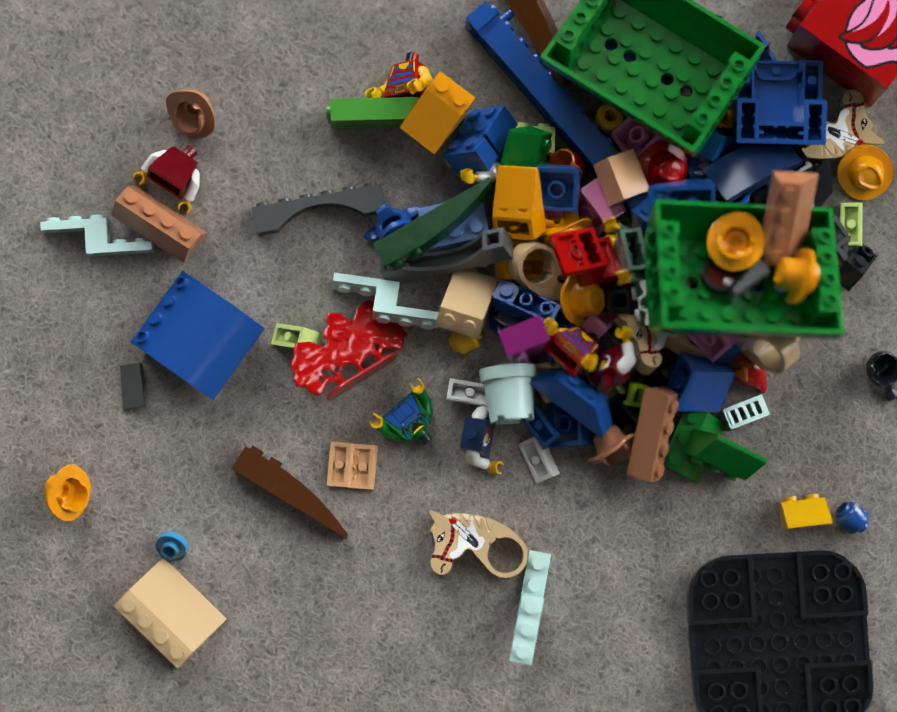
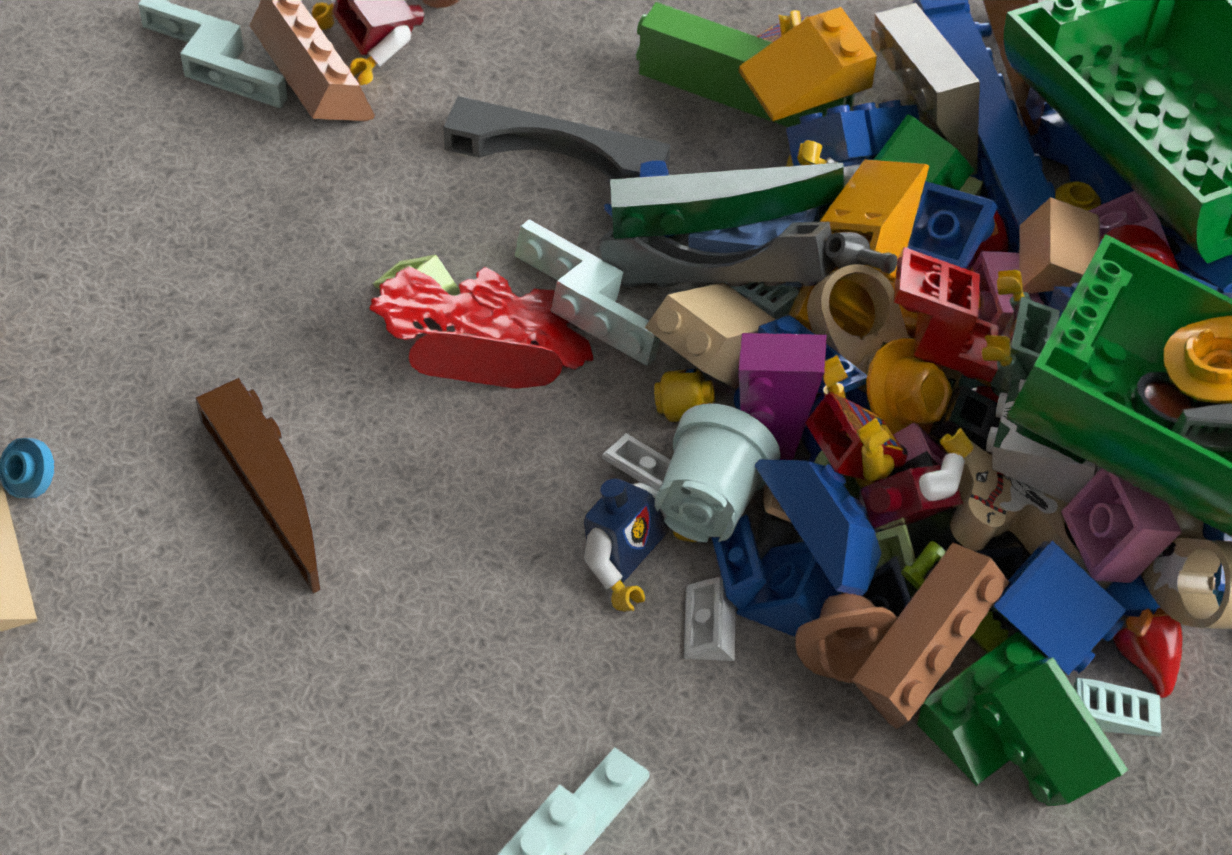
camera: 25 degrees right, 30 degrees down
(132, 386) = (129, 246): dark grey slope -> none
(197, 335) = (269, 209): blue slope -> none
(352, 465) = (391, 493): light nougat slope -> none
(407, 417) = (523, 458): torso -> none
(464, 532) = (533, 678): tan animal -> none
(503, 86) = (931, 75): none -> dark tan slope
(520, 236) = (853, 248): none -> dark grey bar

